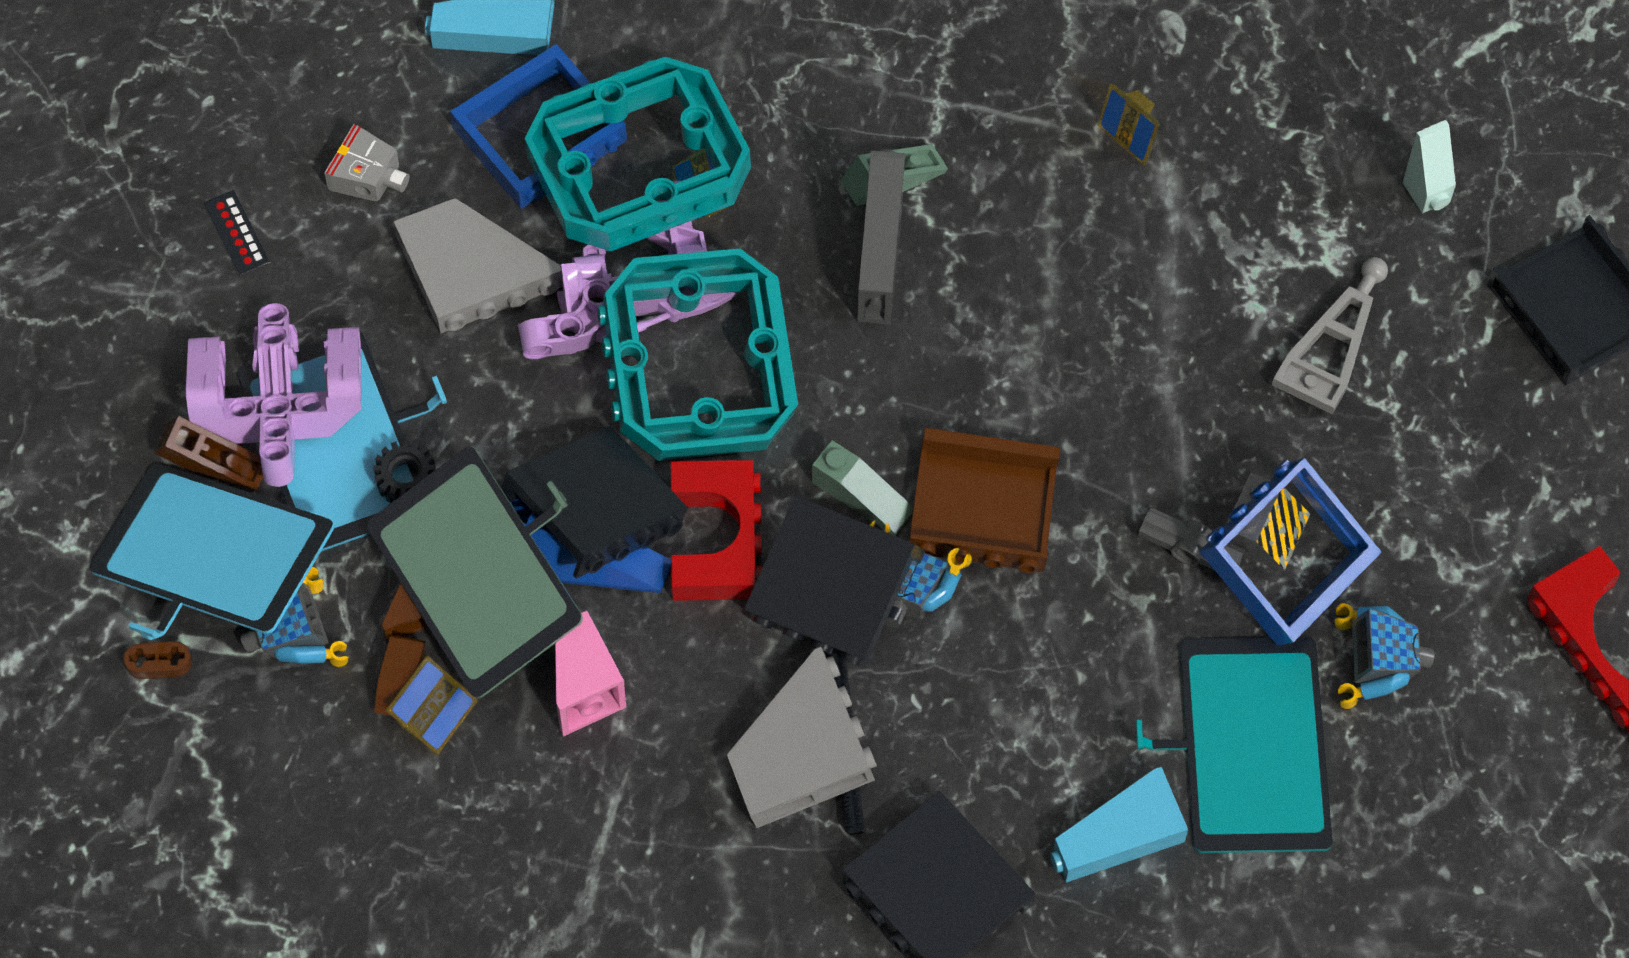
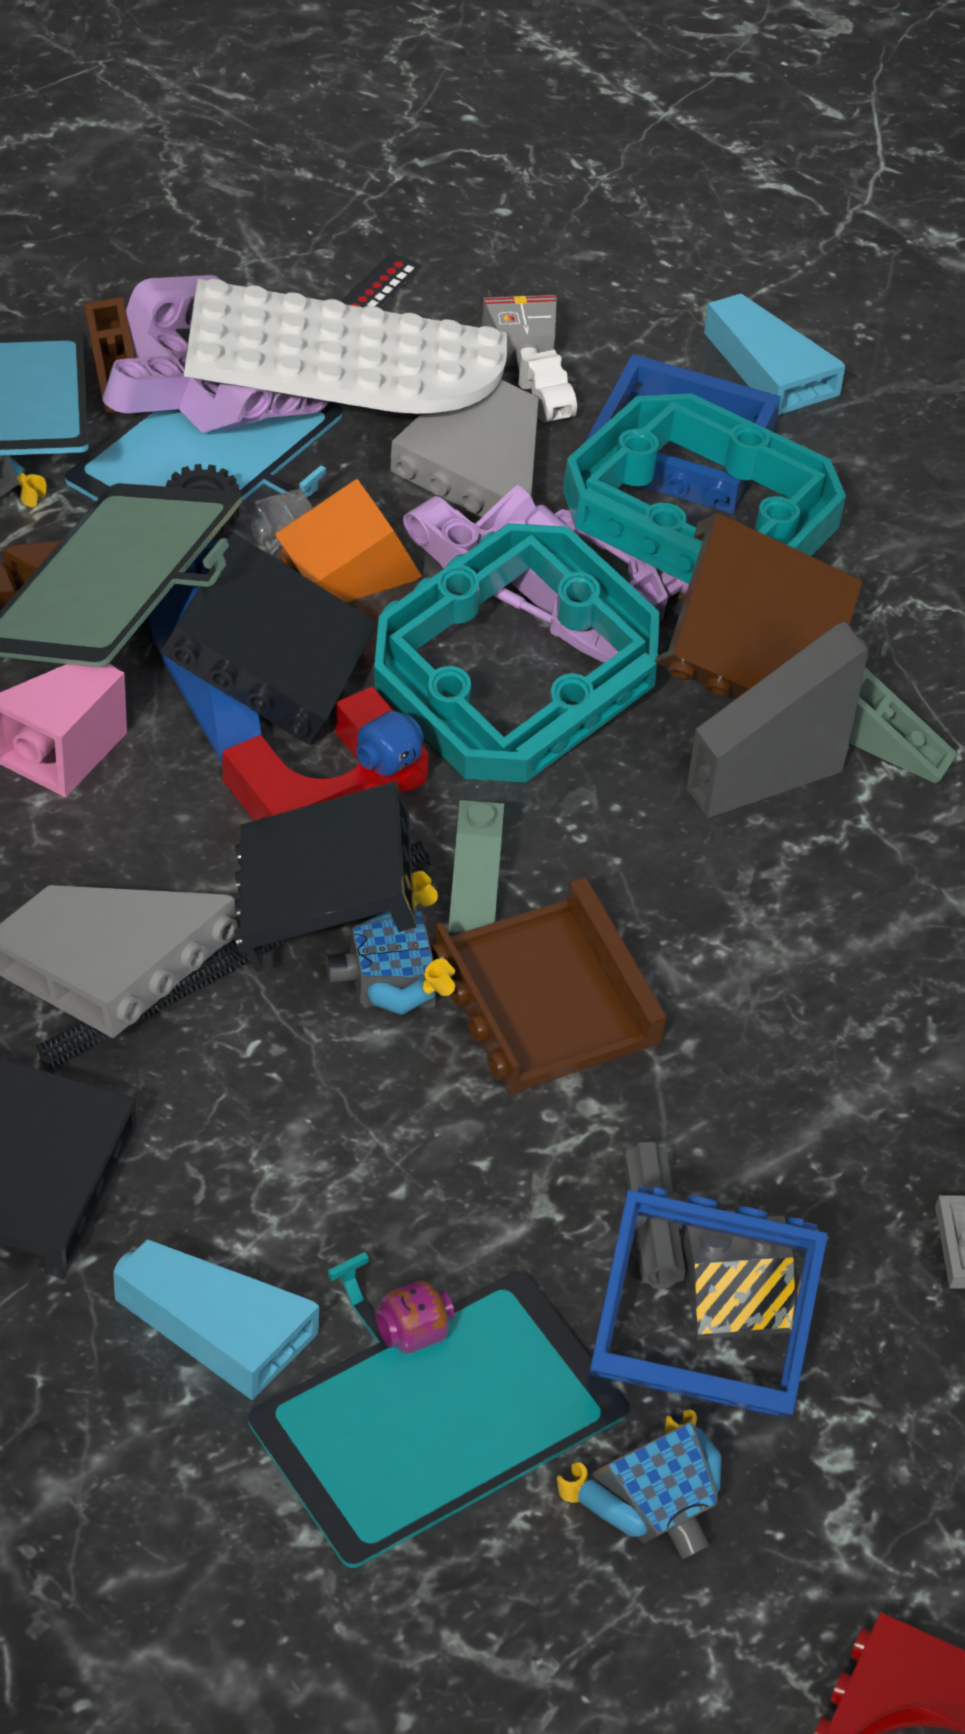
camera: 55 degrees right, 15 degrees down
(340, 303) = (340, 350): none -> white plate
(440, 183) = (548, 383): none -> white leg
(461, 428) = (275, 514): none -> clear brick
(519, 408) = (347, 546): none -> orange slope
(741, 479) = (389, 743): none -> blue head
(793, 192) = (752, 607): none -> reddish brown panel
(1190, 718) = (414, 1316): none -> magenta head

